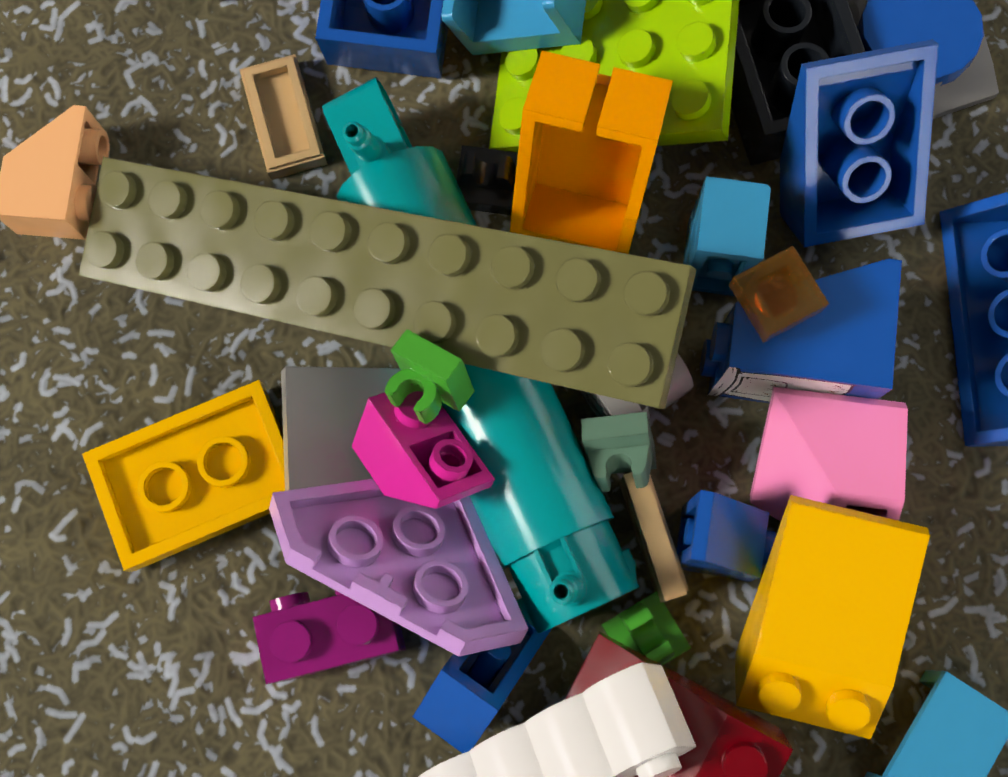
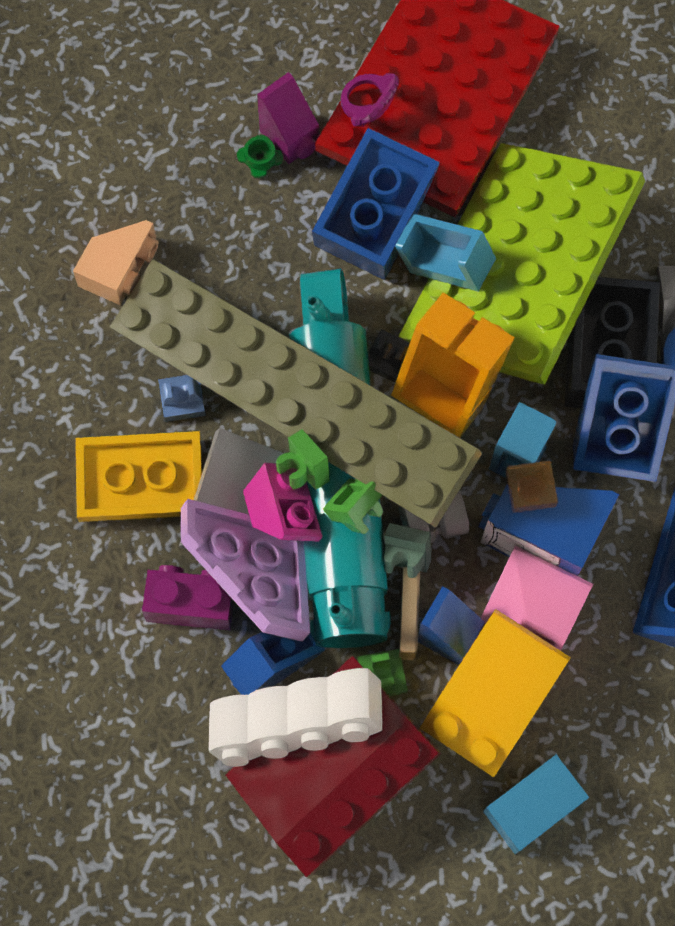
camera: 15 degrees right, 5 degrees down
(216, 341) = (181, 398): none -> medium blue tile
(283, 117) = (273, 270): tan tile -> none
(524, 414) = (353, 503): none -> bright green tile

